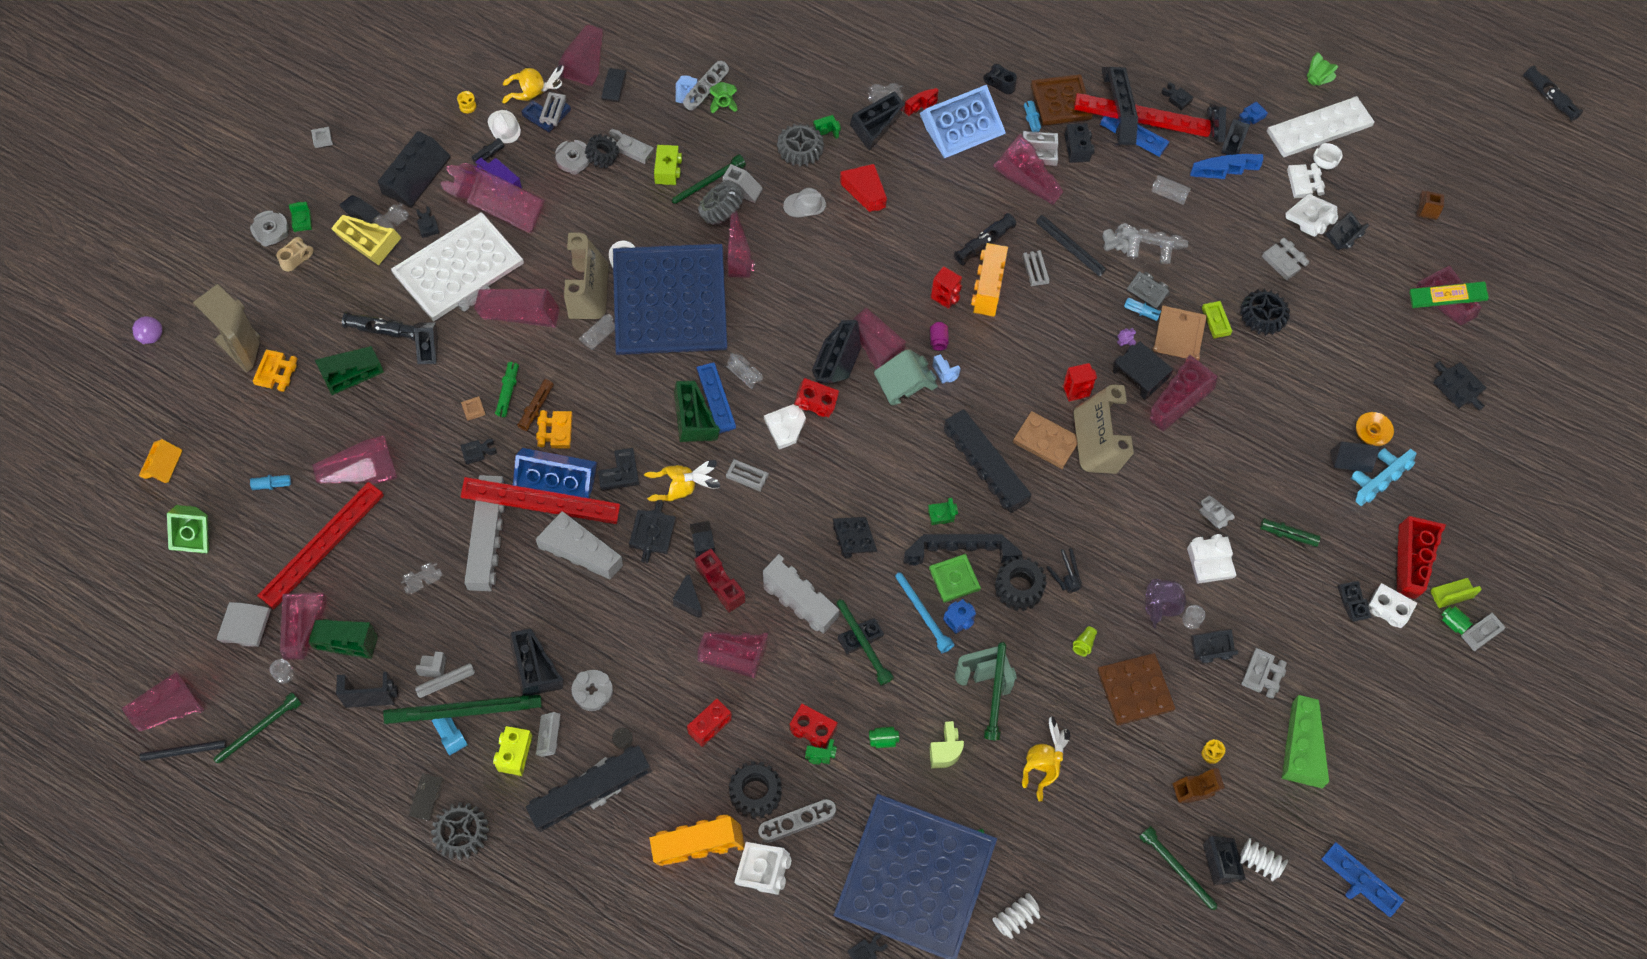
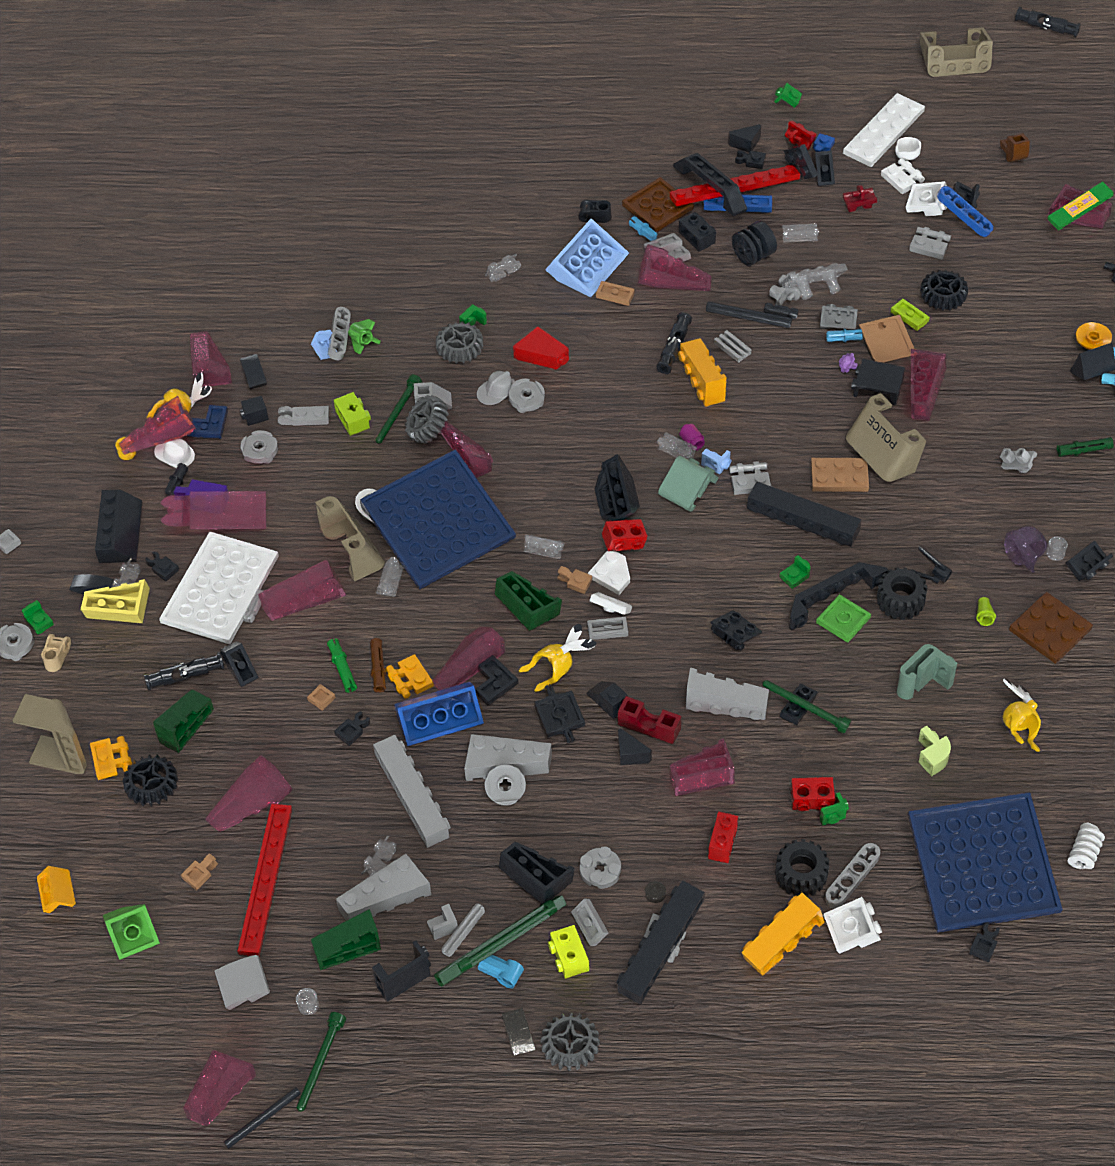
camera: 25 degrees left, 10 degrees down
(270, 482) = (176, 852): dark azure axle -> none
(274, 509) = (198, 873): none -> medium nougat plate
(294, 398) = (146, 775): none -> black gear
(297, 622) = (295, 951): clear pink wedge -> none
(403, 609) = (387, 888): none -> light grey wedge
(504, 100) = (168, 425): none -> clear pink wedge
(540, 500) = (443, 736): red plate -> none
(549, 119) = (216, 425): light grey tile -> none
(552, 575) = (497, 793): none -> light grey plate
(589, 121) = (254, 410): none -> black brick
(599, 157) = (284, 429): black tyre -> none
(617, 436) = (468, 655): none -> clear pink wedge
(716, 397) = (539, 579): blue plate -> none
(751, 417) = (576, 581): none -> medium nougat plate
(763, 454) = (610, 604): none -> white plate
(820, 231) = (523, 403): none -> light grey plate
(877, 118) = (512, 290): black wedge -> none
(878, 339) = (644, 463): clear pink wedge -> none
(883, 737) = (877, 771): green brick -> none
(919, 338) = (676, 446): none -> clear hinge
(923, 99) = (540, 259): red slope -> none
(943, 642) = (872, 672): dark azure piece -> none
(946, 287) = (672, 394): red brick -> none
(956, 402) = (744, 483): none -> light grey plate
(959, 616) = (871, 644): blue brick -> none
(966, 165) = (615, 293): none -> medium nougat plate
(992, 731) = (961, 717): dark green piece -> none
(1079, 382) = (836, 414): red brick -> none
(1102, 256) = (781, 310): none -> black axle
(1119, 180) = (754, 243): none -> black wheel
(1184, 73) = (745, 138): none -> black slope
(1211, 559) = (1038, 498): white plate -> none
(1228, 164) = (827, 196): blue slope -> none
(1235, 94) = (798, 134): none -> red hips
(1248, 183) = (861, 197): none -> dark red hips
(1253, 50) = (788, 94): none -> green bracket
(1321, 71) = (855, 85): bright green brick -> none
(1333, 245) = (963, 212): none -> blue beam
(1439, 88) = (957, 59): none -> dark tan windscreen

